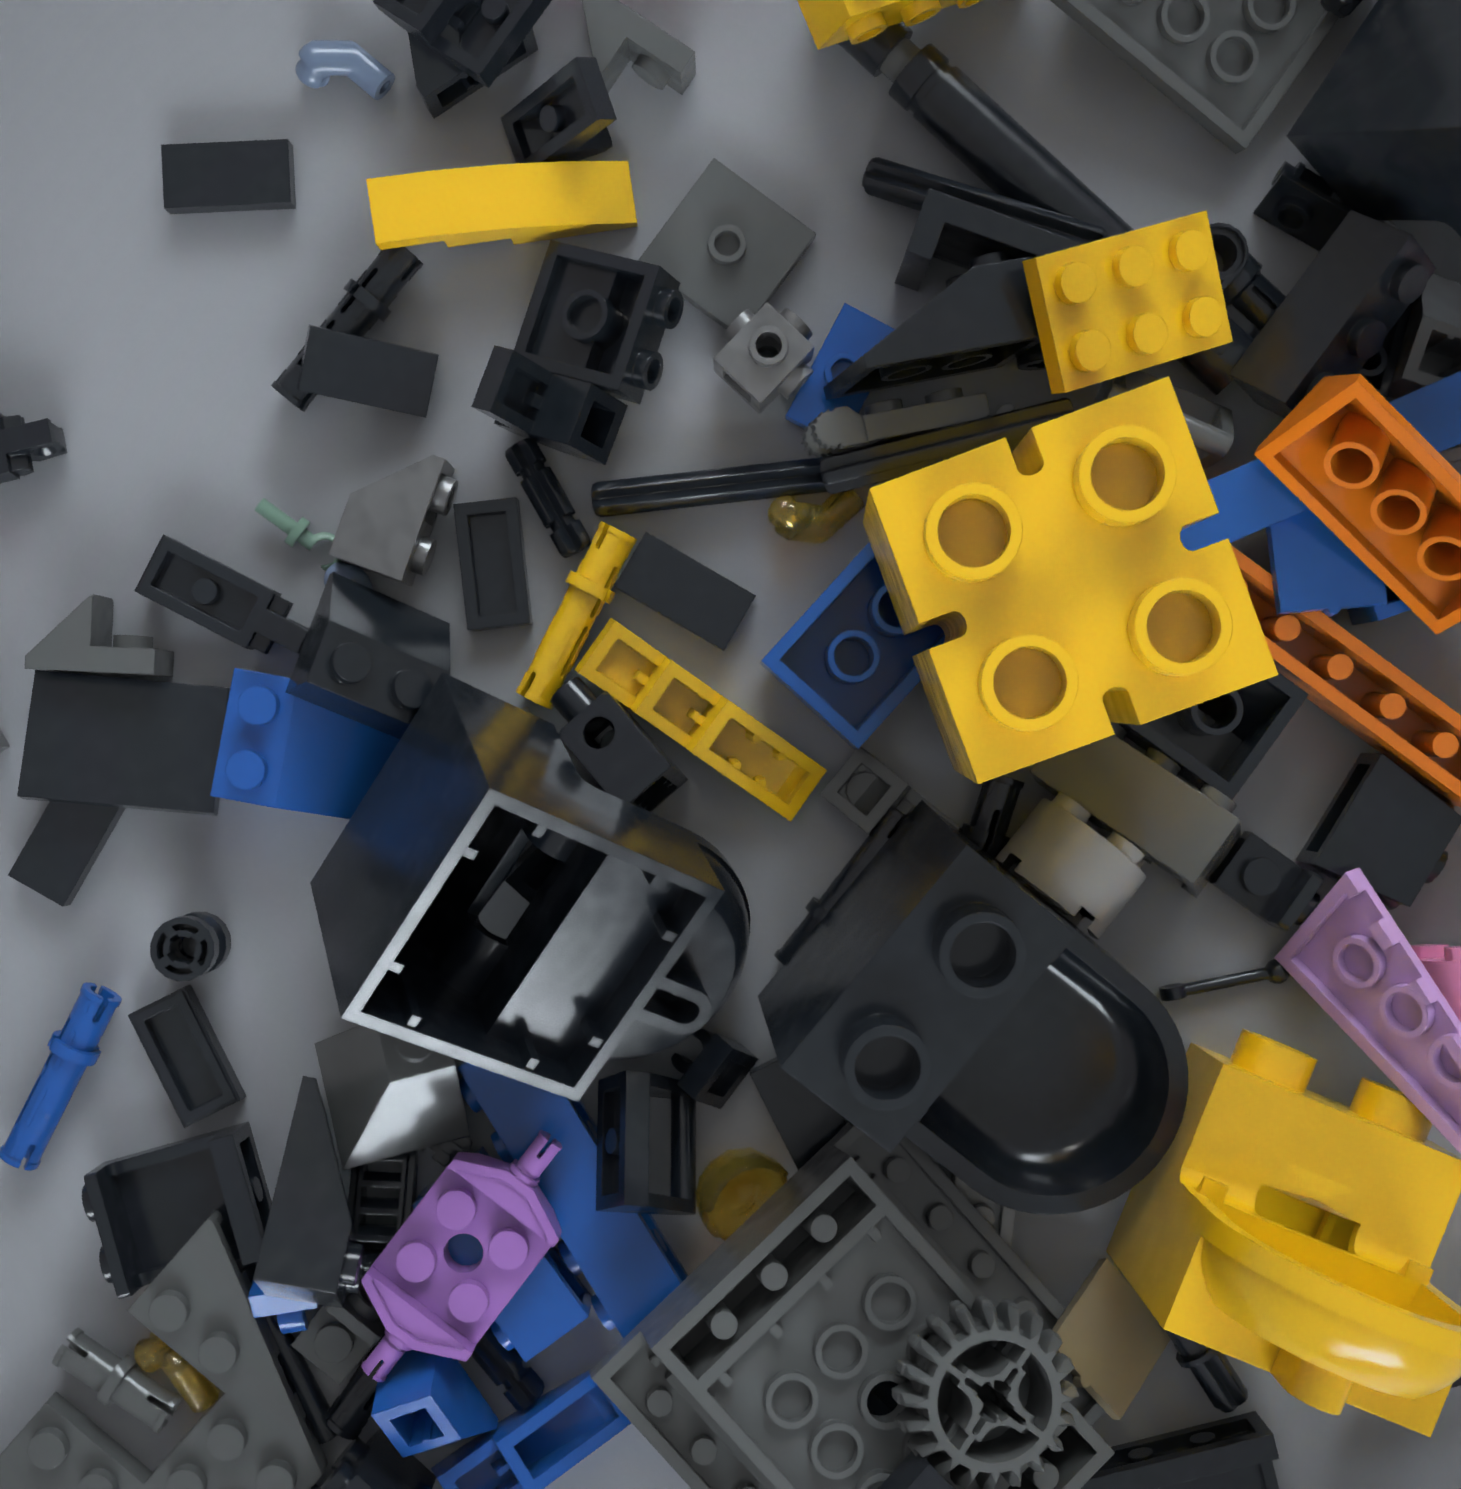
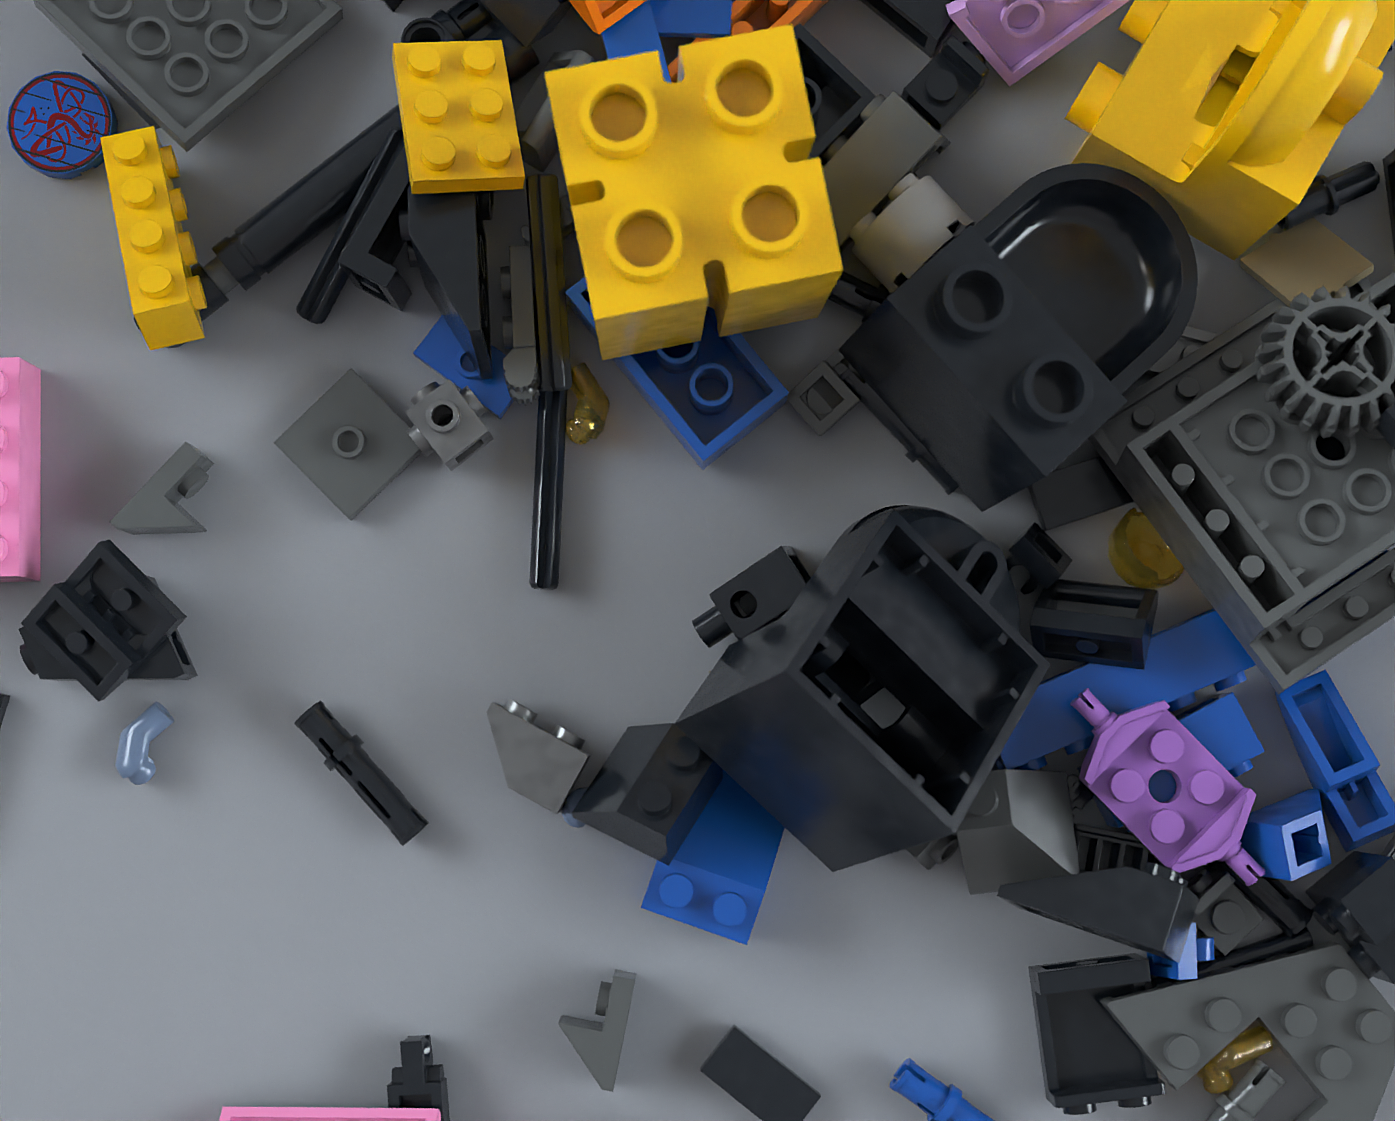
camera: 85 degrees left, 5 degrees down
(122, 743) = (688, 1019): black tile -> none
(187, 1056) = (964, 1009): black tile -> none
(203, 939) = (864, 980): black wheel -> none
(219, 598) = (577, 917): black hinge -> none
(228, 176) = (217, 857): black tile -> none
(295, 530) = (529, 845): sand green hand -> none
(367, 371) = (405, 760): black tile -> none
(493, 564) = (584, 681): black tile -> none
(501, 203) = (282, 624): yellow slope -> none
(506, 1368) = (1267, 774): black axle -> none
(547, 497) = (535, 626): black axle -> none
(548, 406) = (461, 609): black brick -> none
(562, 117) = (220, 564): black slope -> none
(576, 614) = (633, 612): yellow pin -> none
(600, 319) = (395, 559): black plate -> none
(684, 591) = (632, 523): black tile -> none
(700, 719) = (742, 525): yellow slope -> none
(1273, 972) = (1021, 89): black hinge -> none

